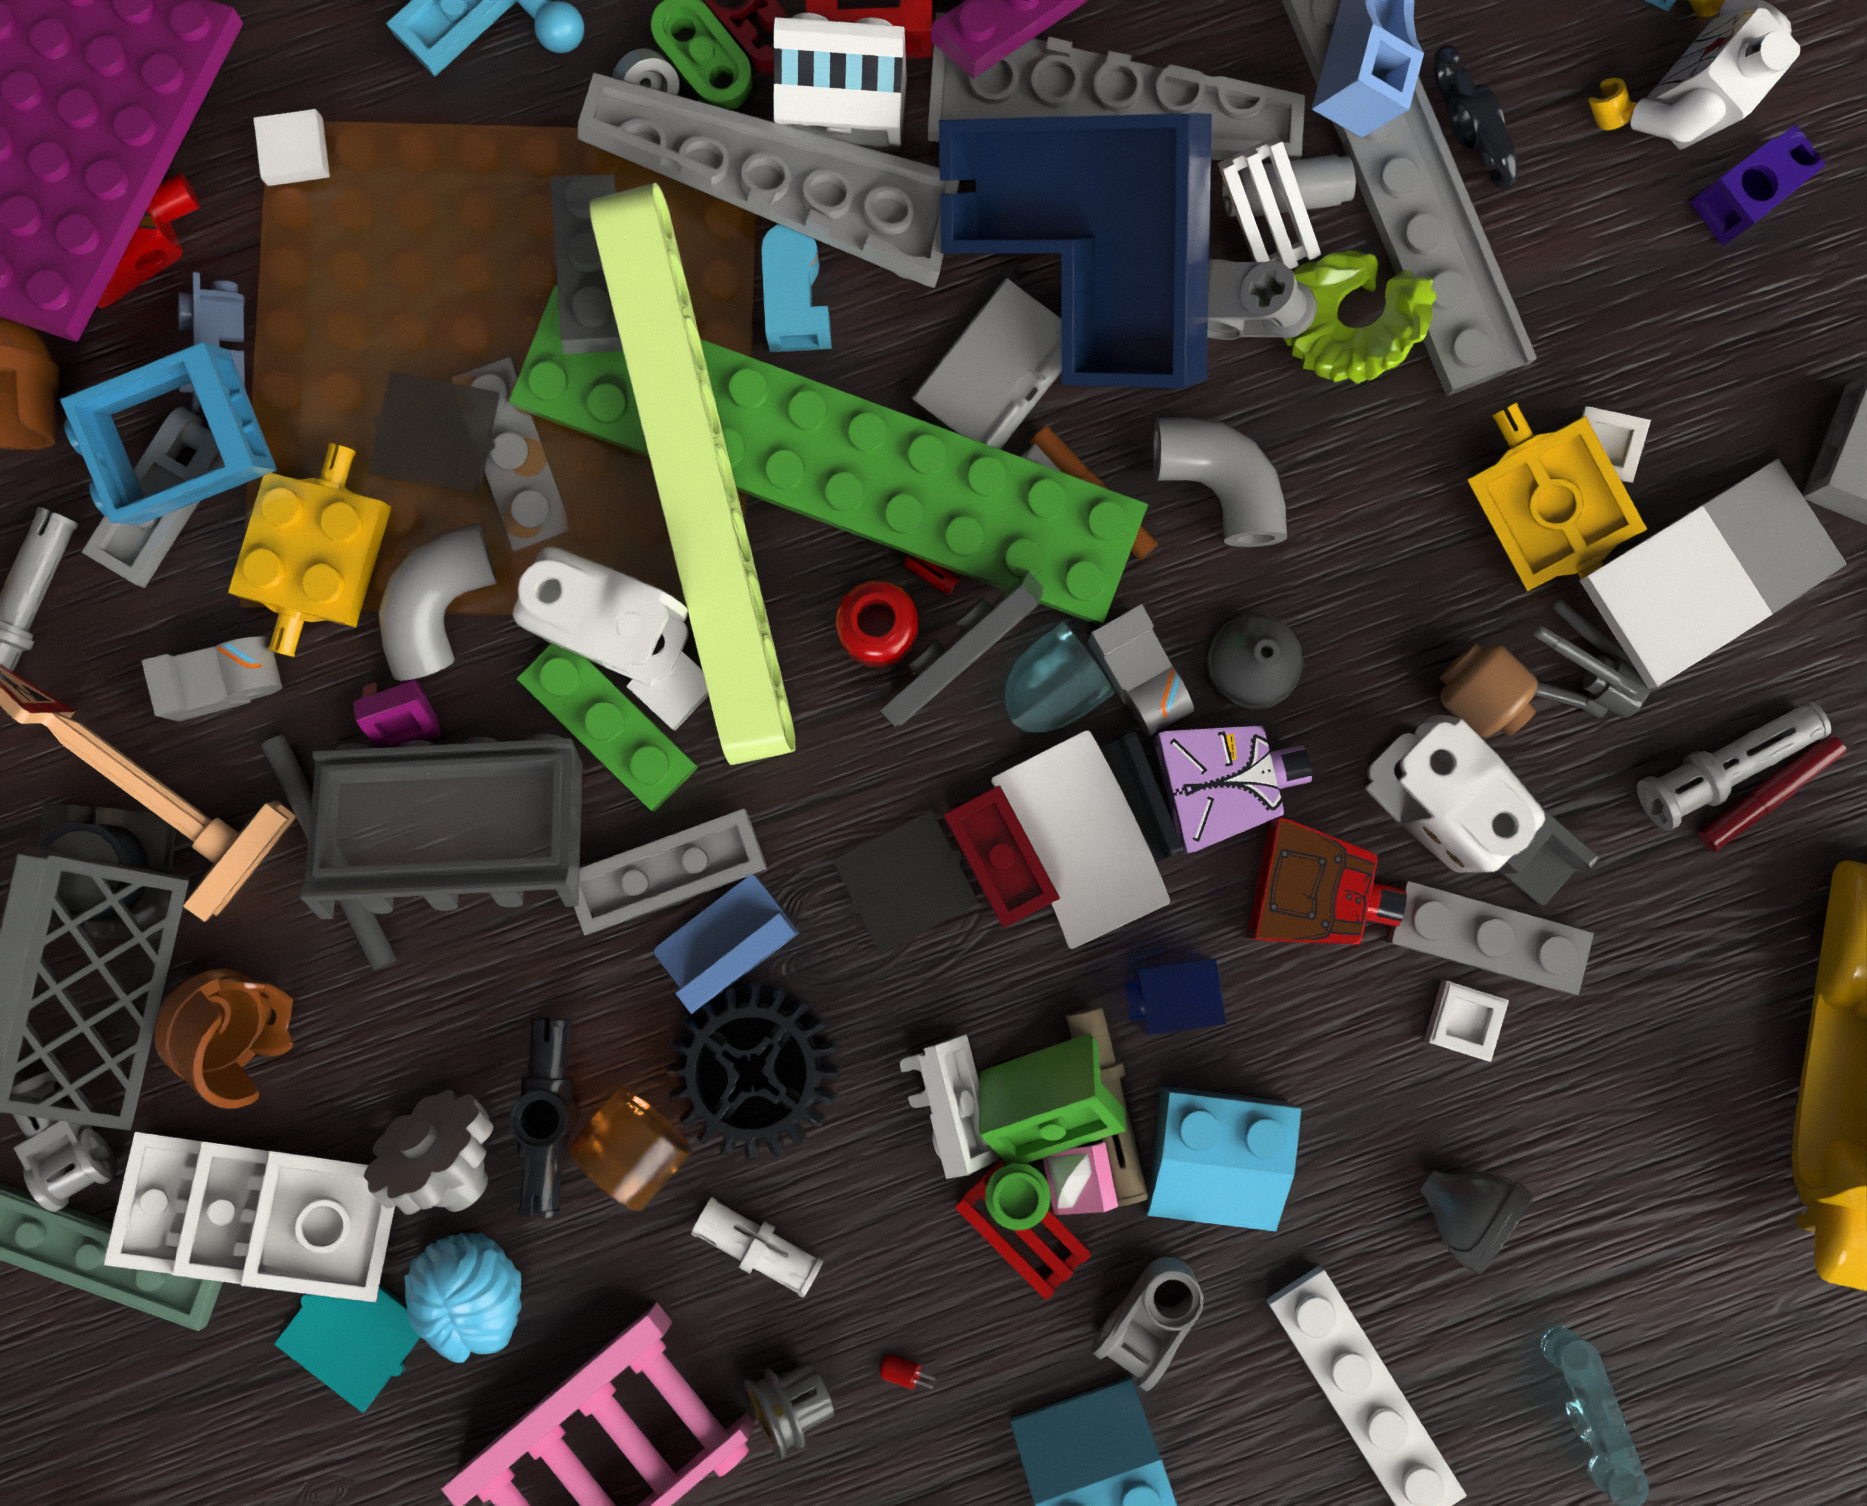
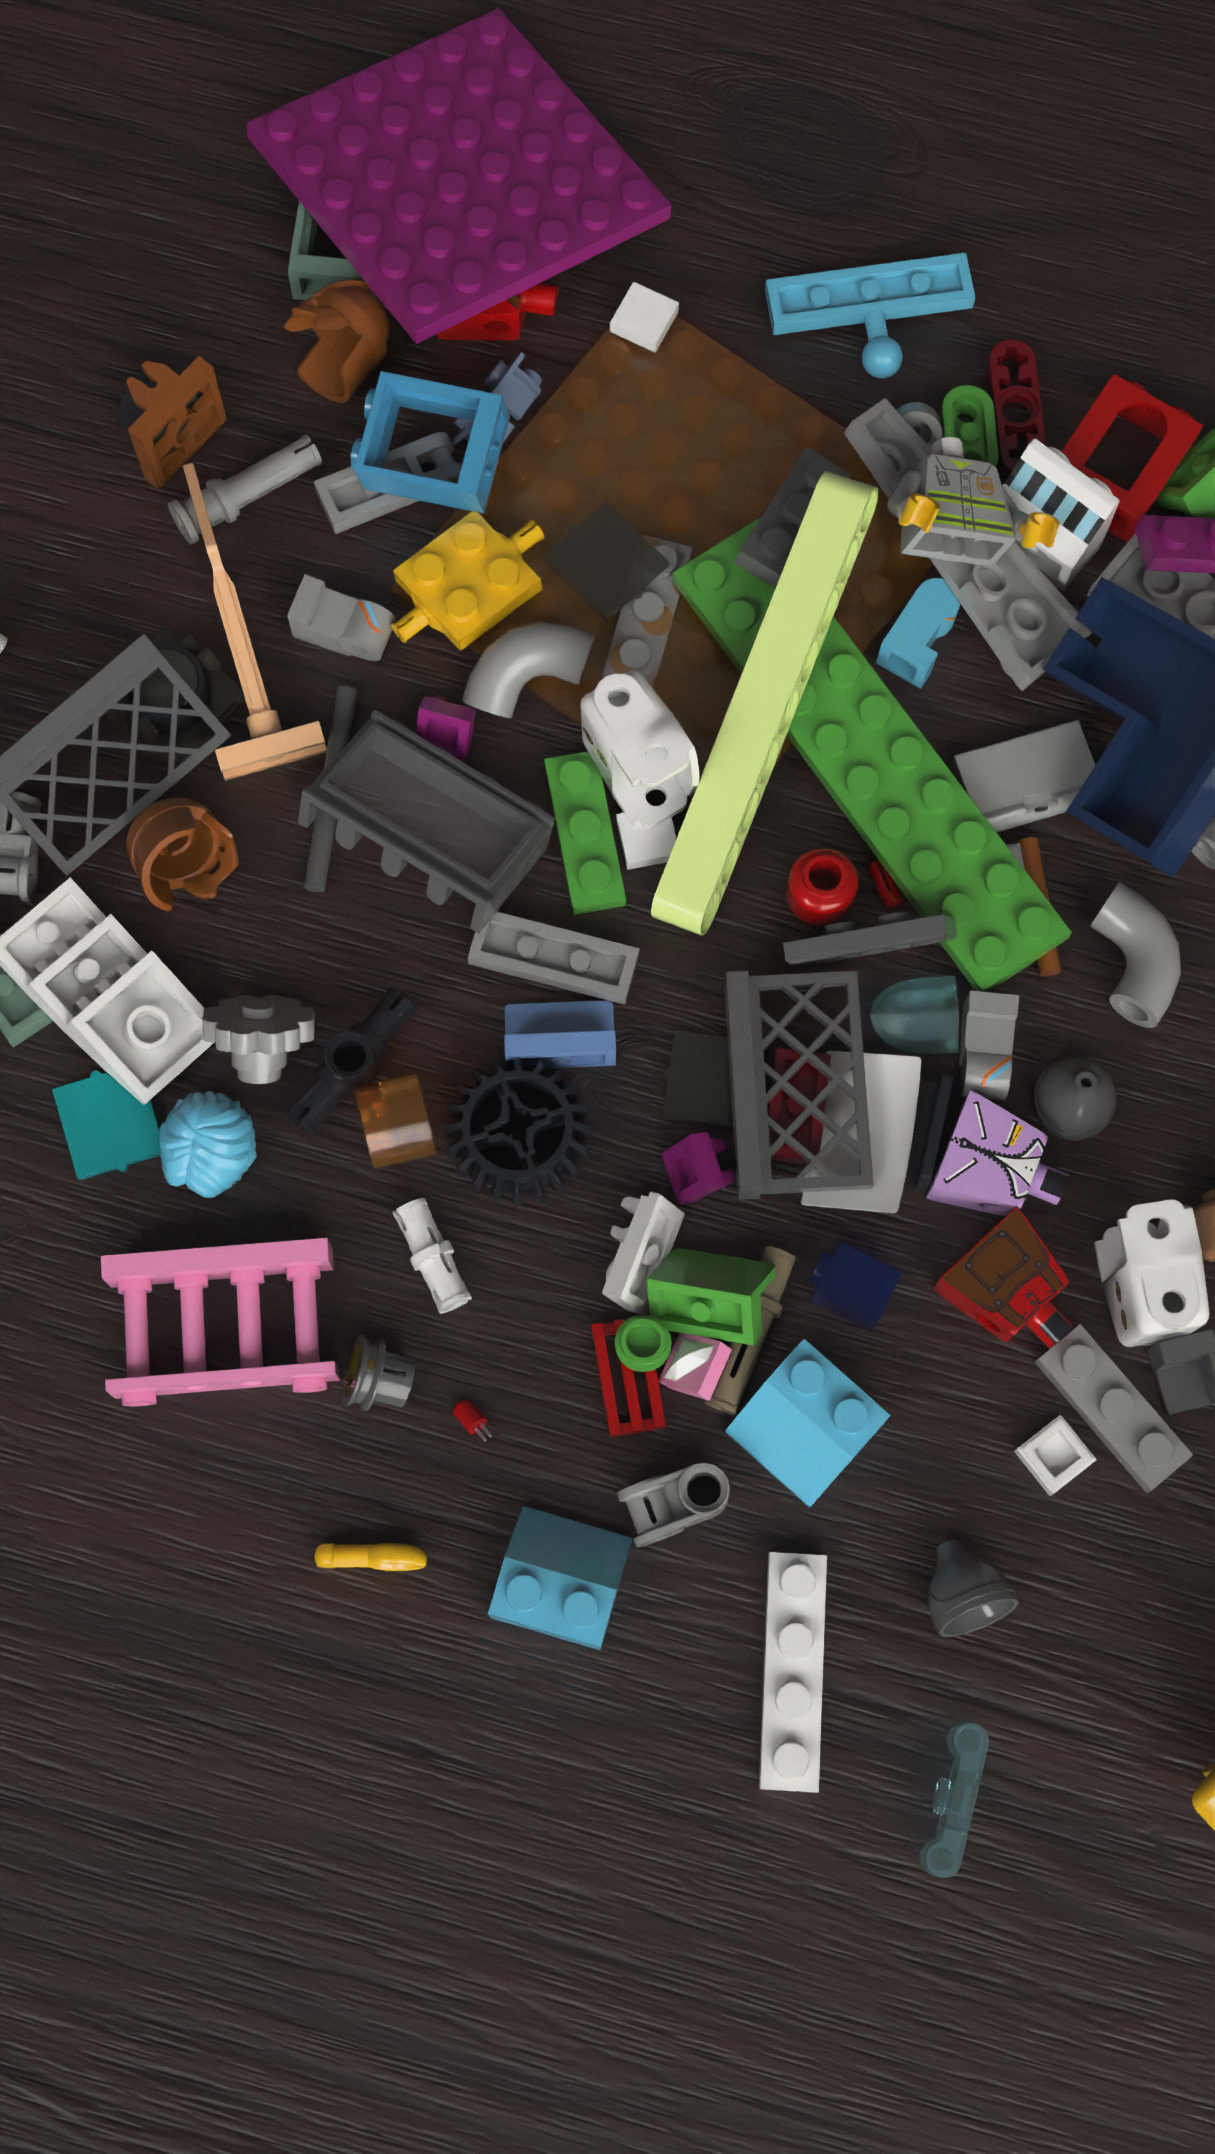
camera: 30 degrees right, 10 degrees down
(752, 143) = (961, 510): none -> light grey torso
(942, 870) = (748, 1083): none -> dark grey fence
(948, 988) = (695, 1168): none -> magenta tile

